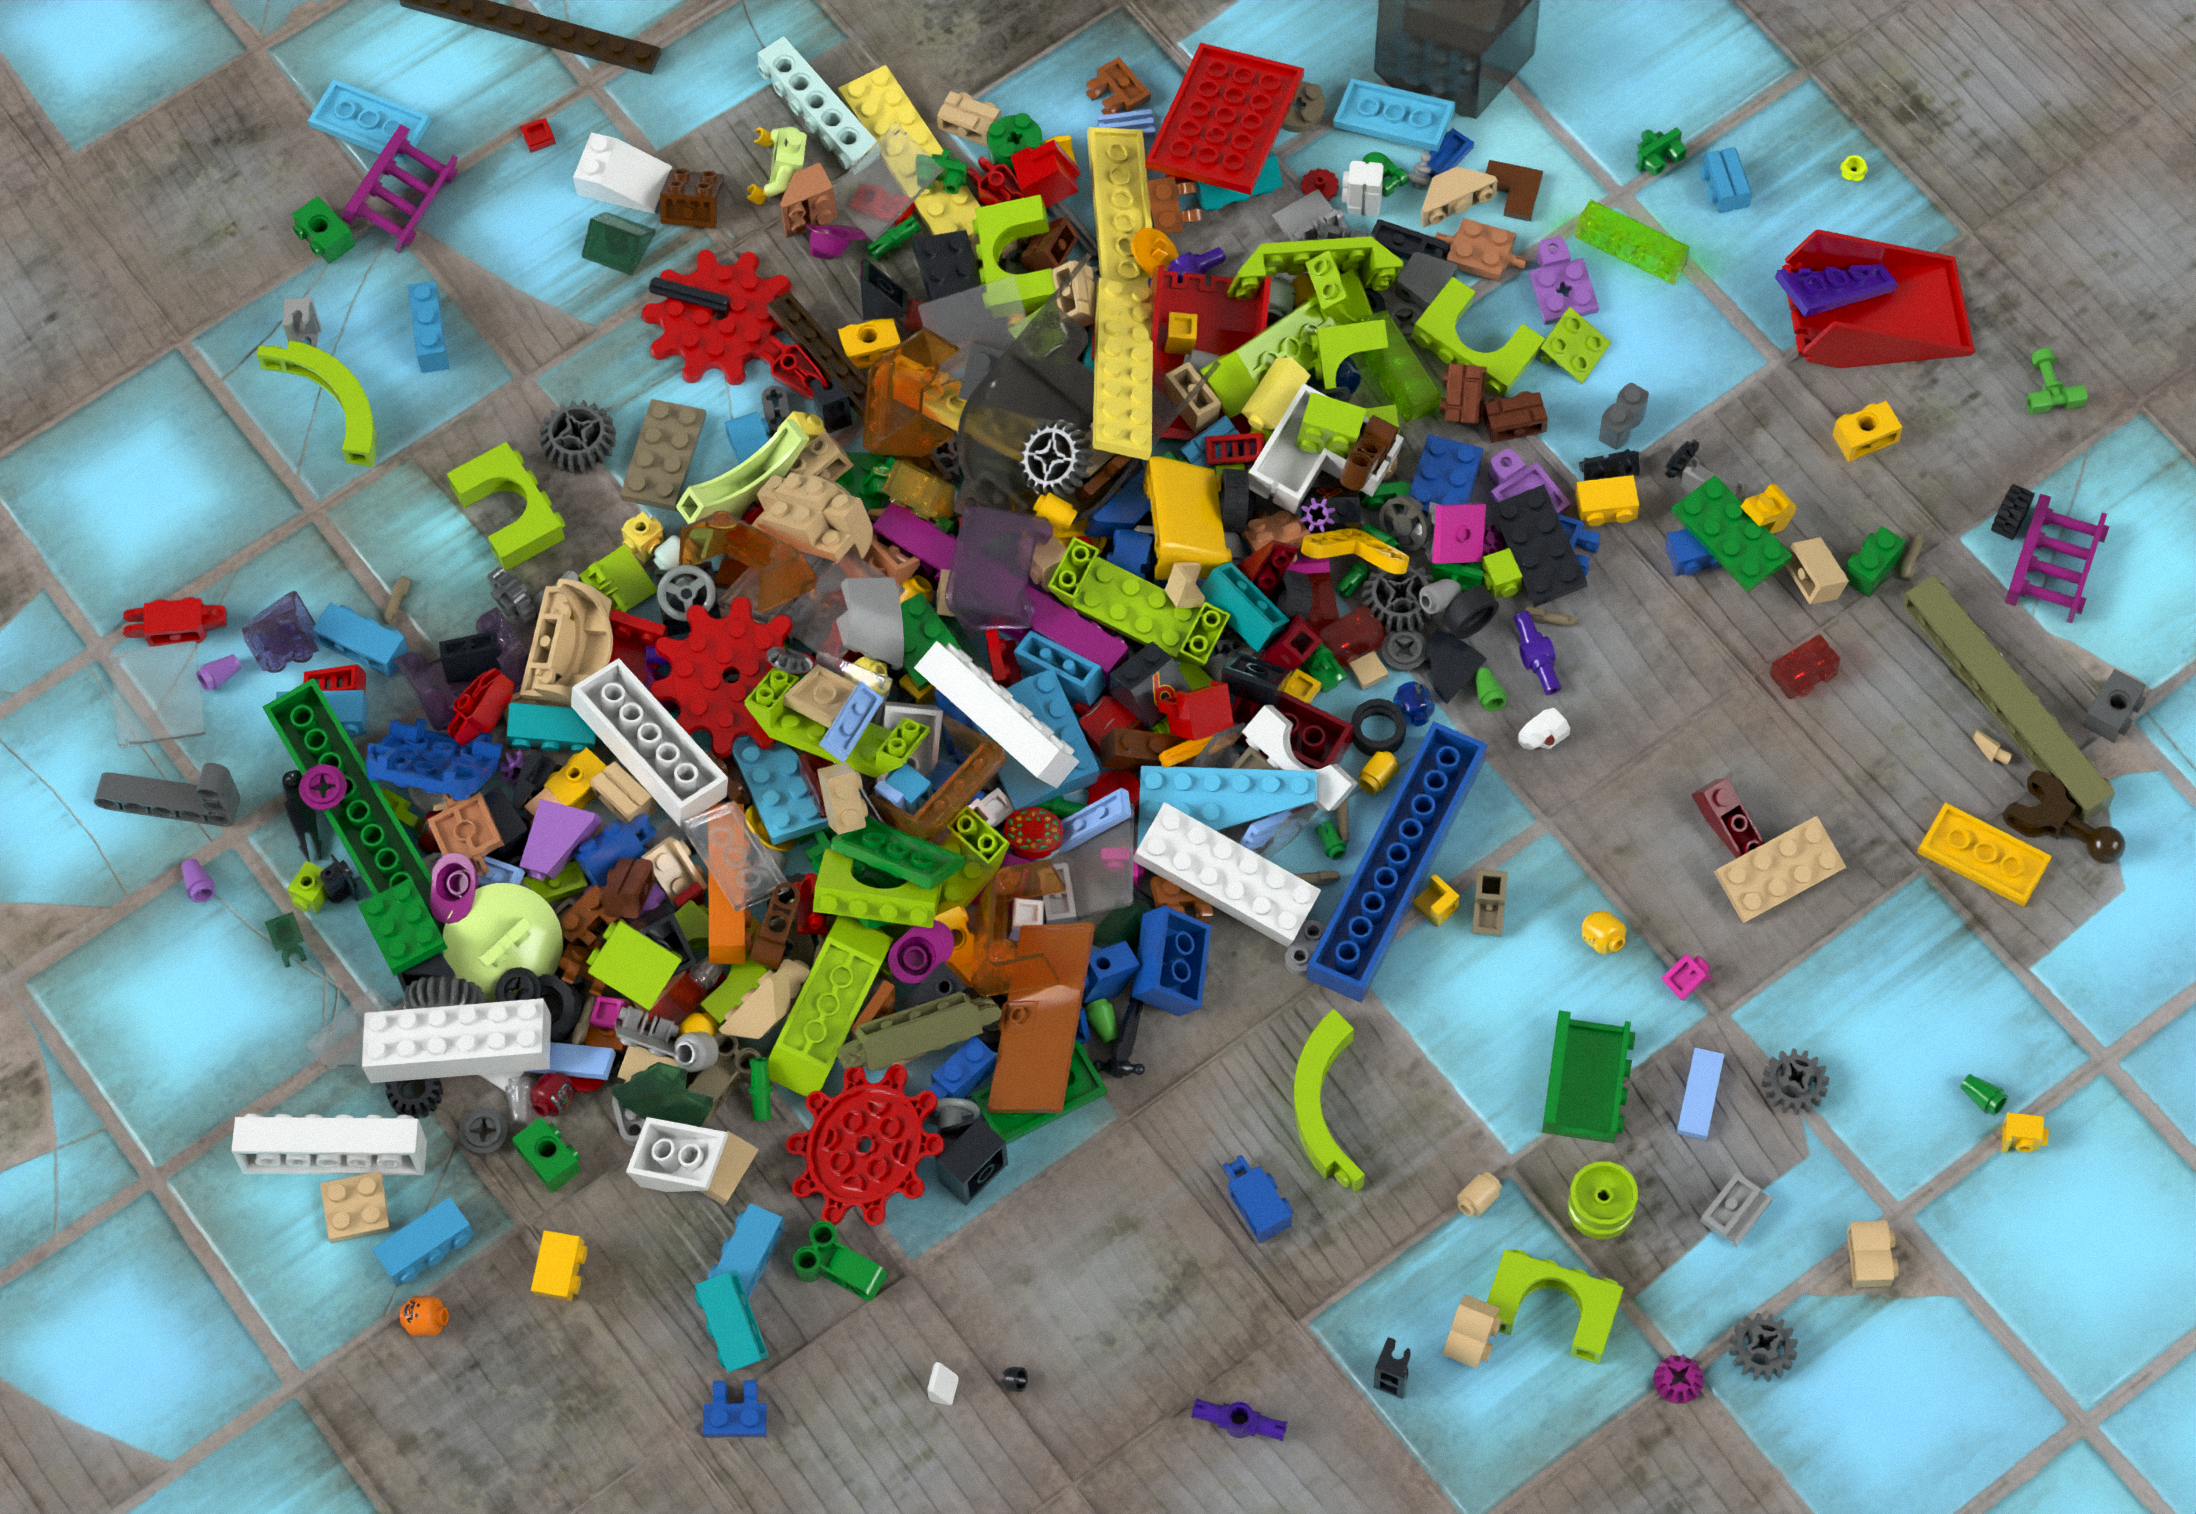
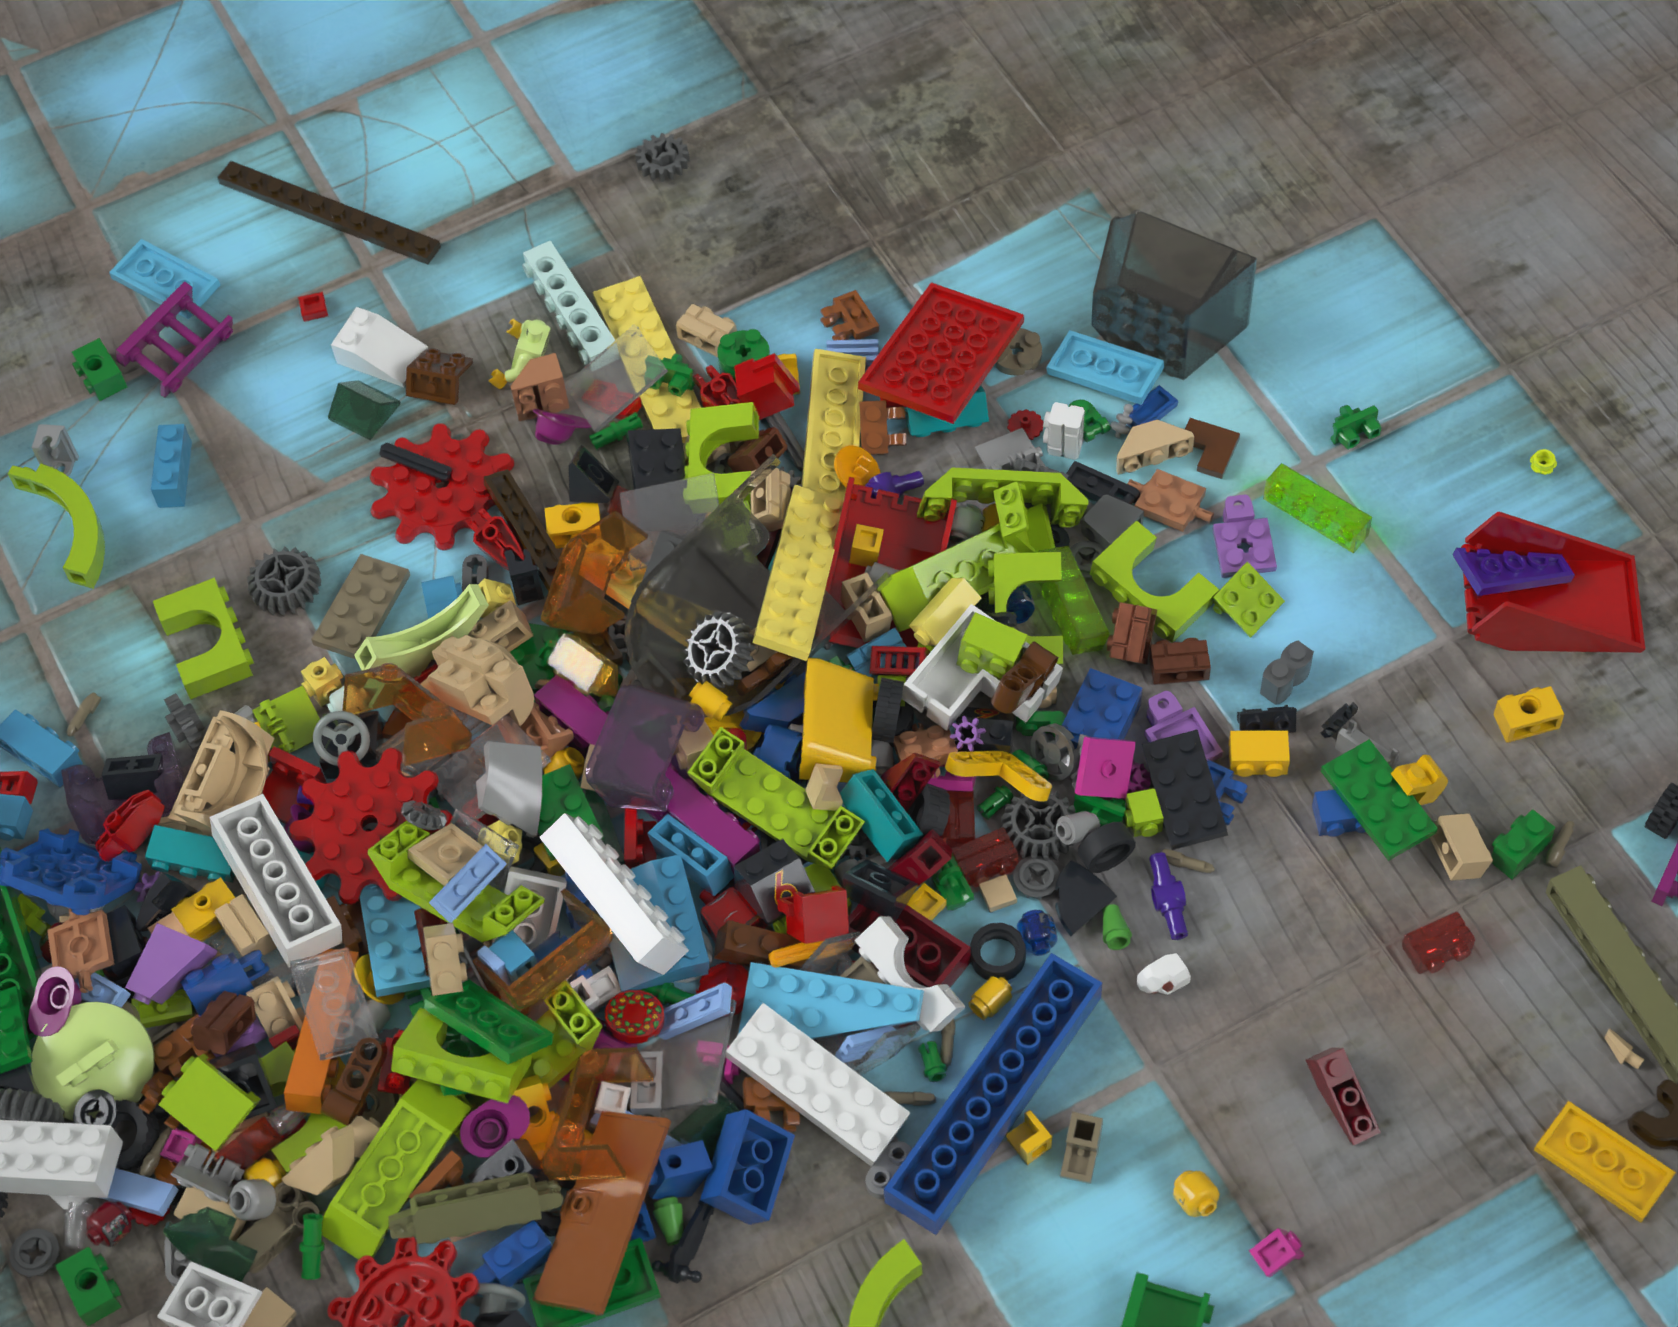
camera: 10 degrees right, 5 degrees down
(1726, 180) = (1417, 460): dark azure brick -> none
(1779, 869) = (1387, 1150): tan plate -> none

